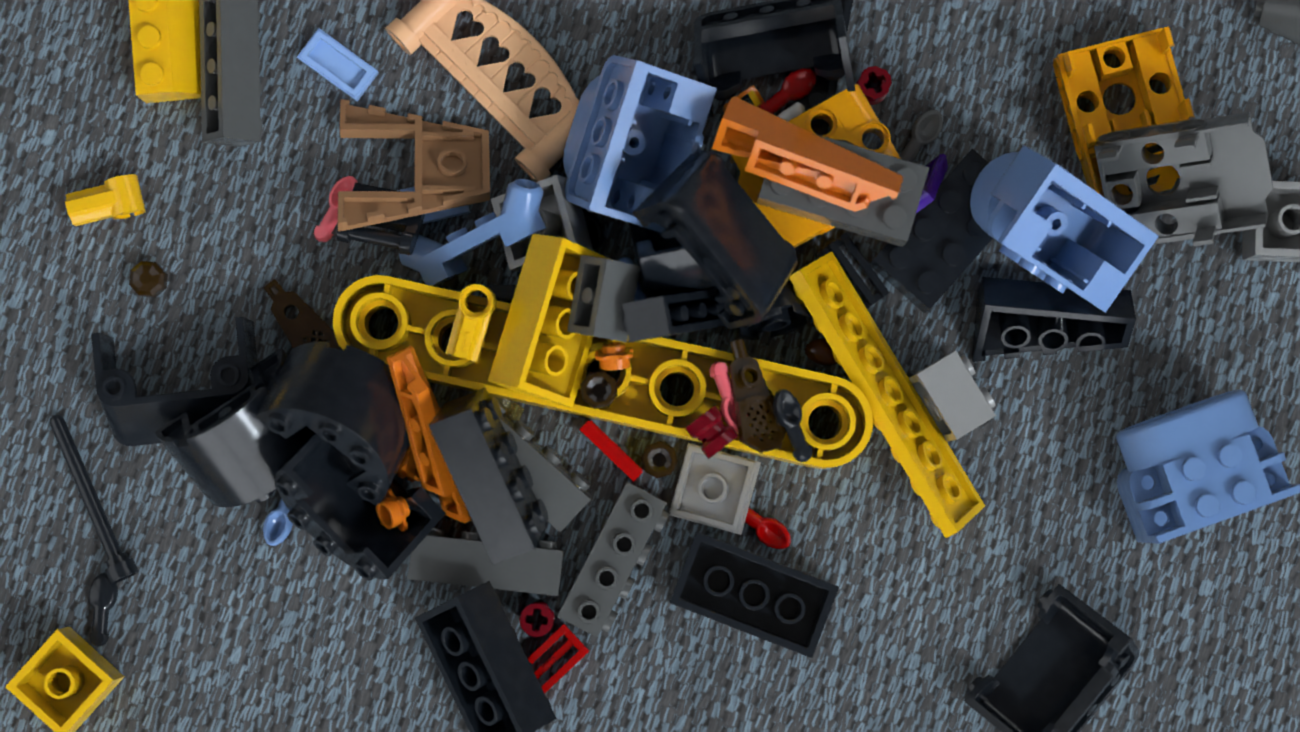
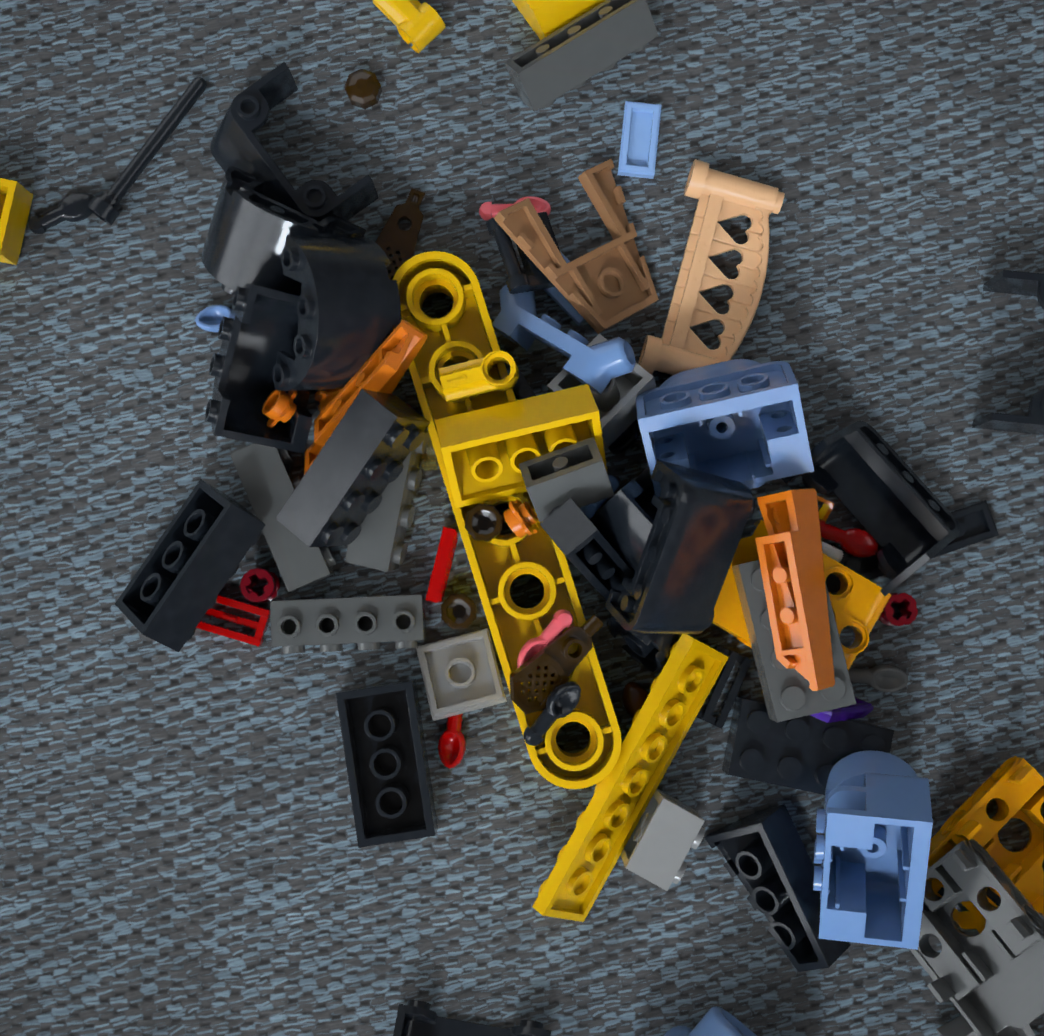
camera: 65 degrees right, 0 degrees up
(711, 432) = (504, 644): dark red wheel -> none

